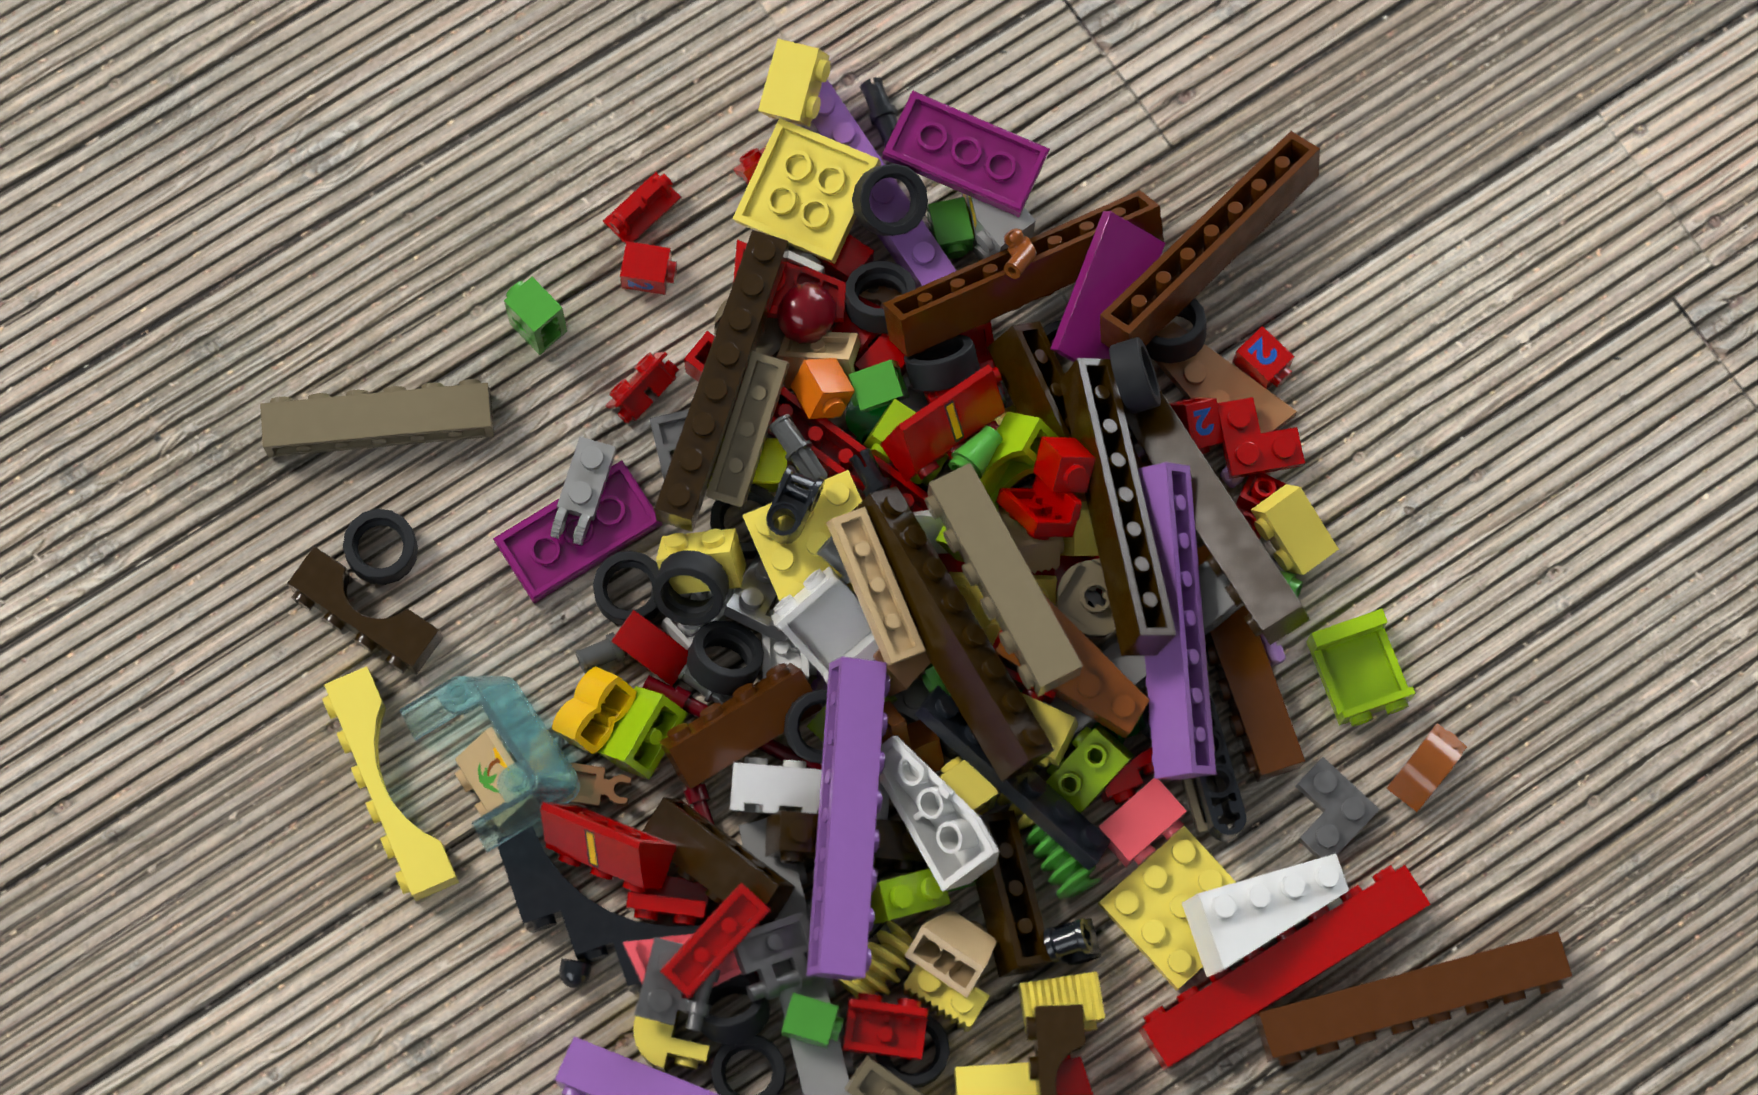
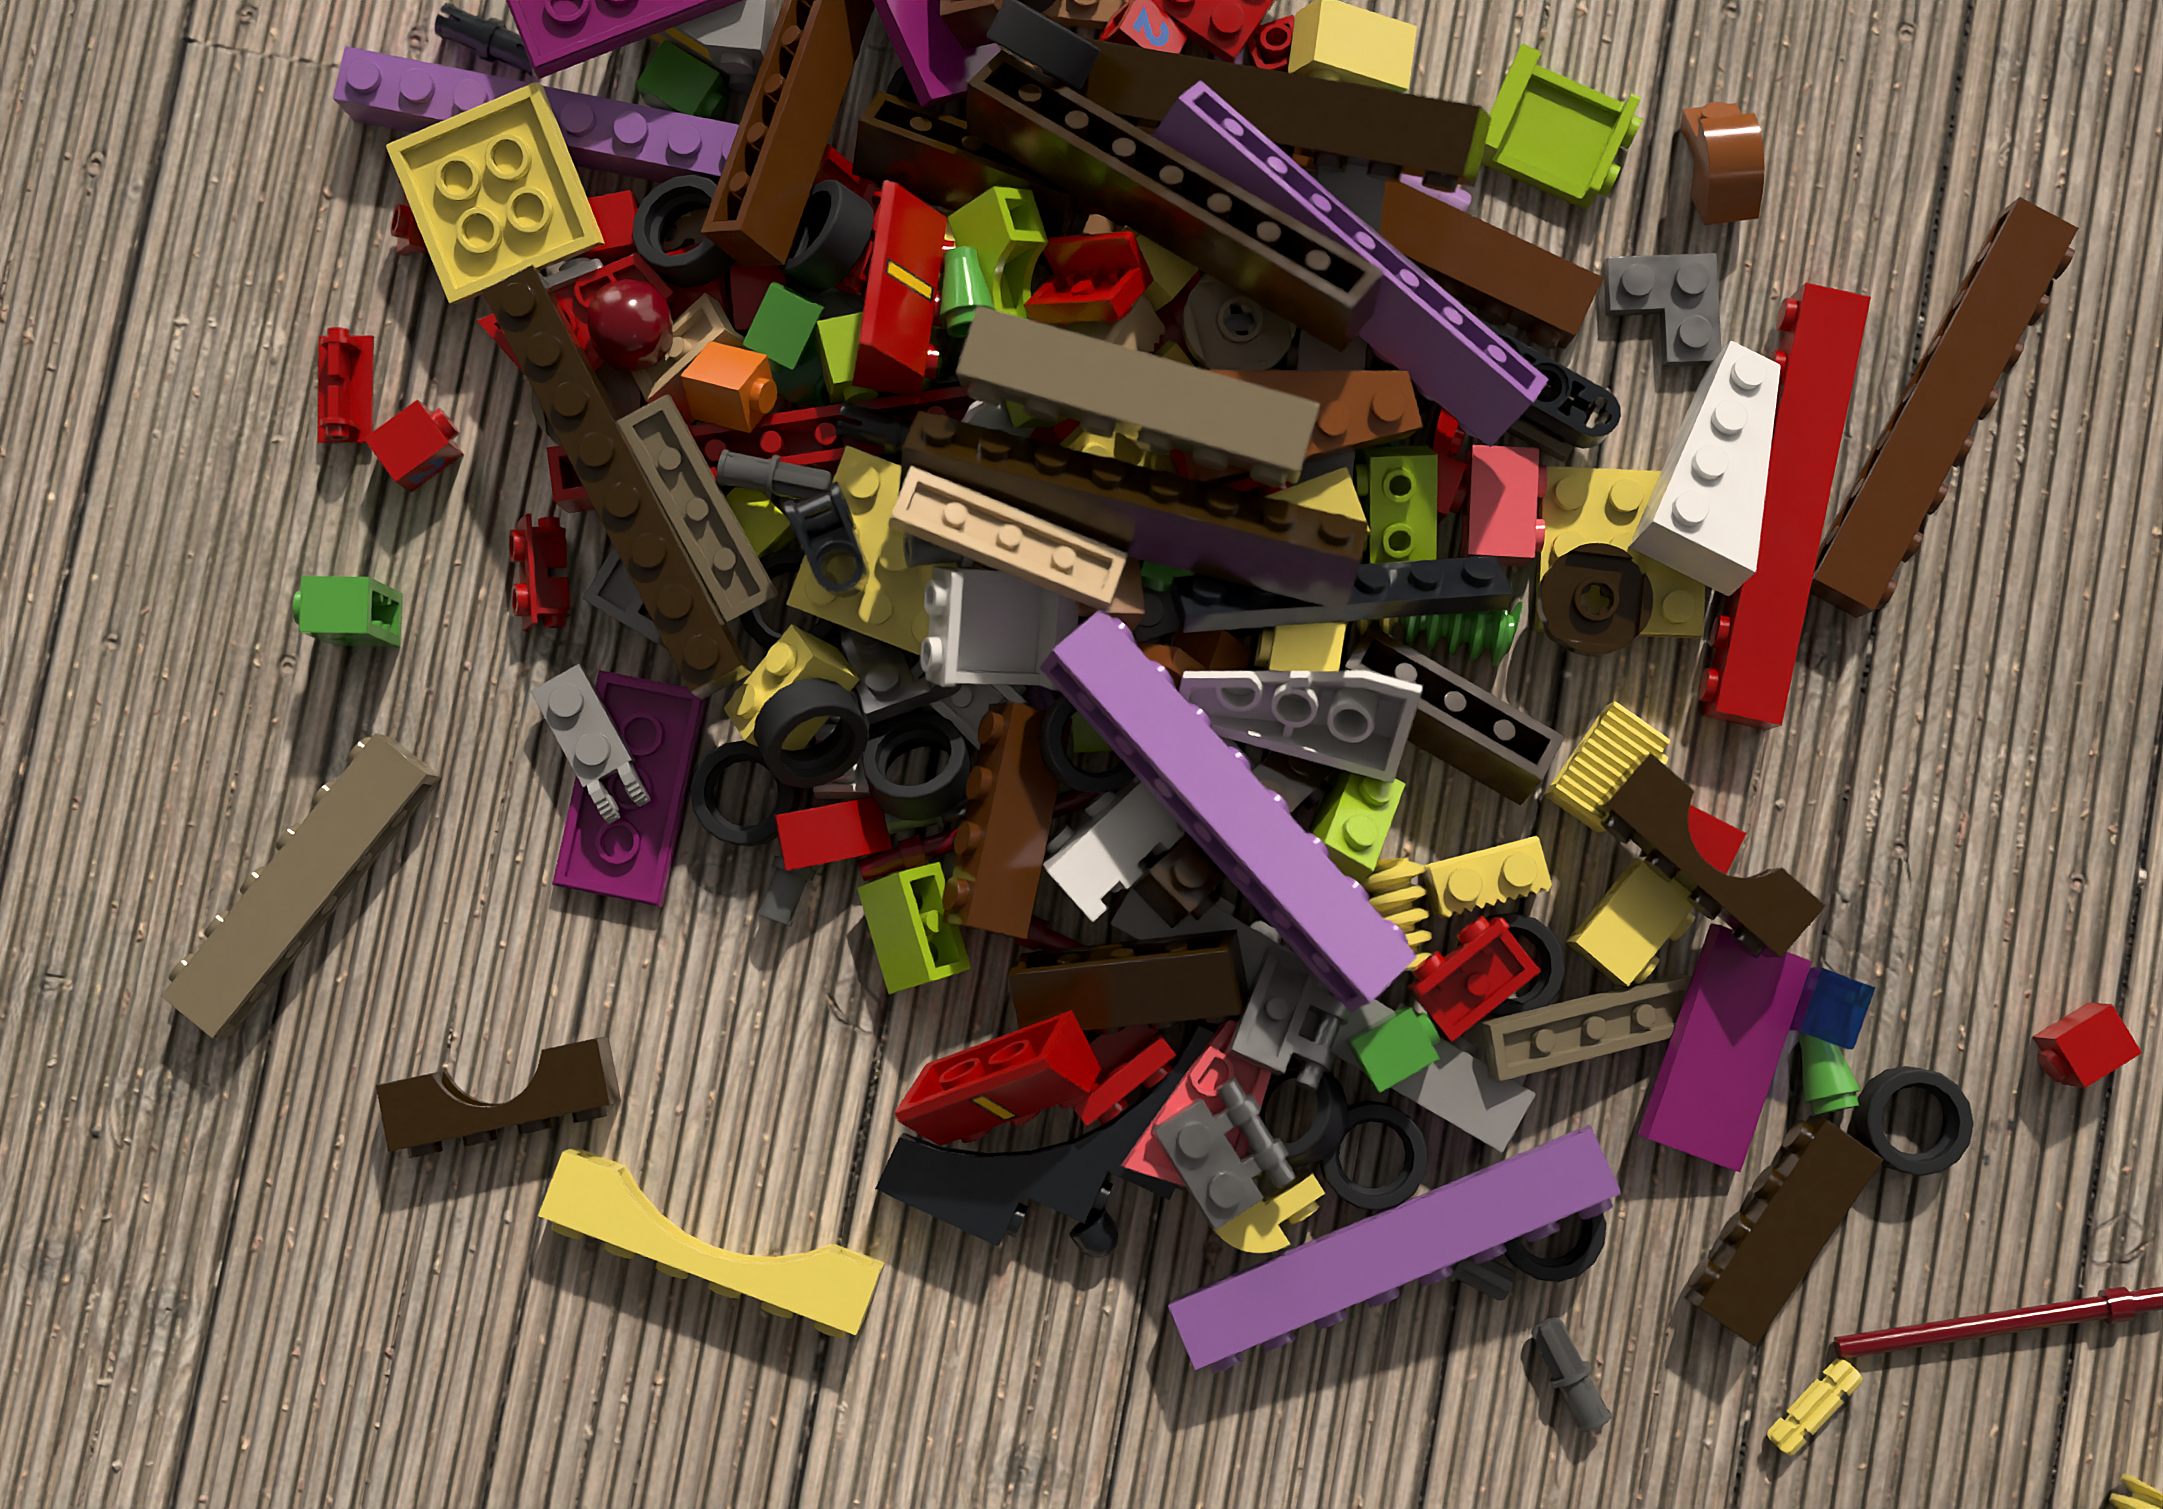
camera: 35 degrees left, 10 degrees up
(375, 518) = (403, 1004): black tyre -> none
(480, 768) = (815, 1130): tan slope -> none
(541, 766) = (851, 1071): clear light blue windscreen -> none
(595, 786) = (914, 1036): medium nougat plate -> none
(596, 706) = (841, 956): yellow brick -> none
(714, 940) = (1220, 1074): red tile -> none
(794, 83) = (362, 89): light yellow brick -> none
(917, 193) = (616, 81): black tyre -> none
(953, 950) = (1462, 828): tan torso -> none
(1021, 252) = (789, 31): dark orange arm -> none
(1064, 464) = (1069, 211): red brick -> none
(1072, 942) = (1558, 695): black piece -> none
(1140, 889) = (1619, 579): none -> dark brown plate

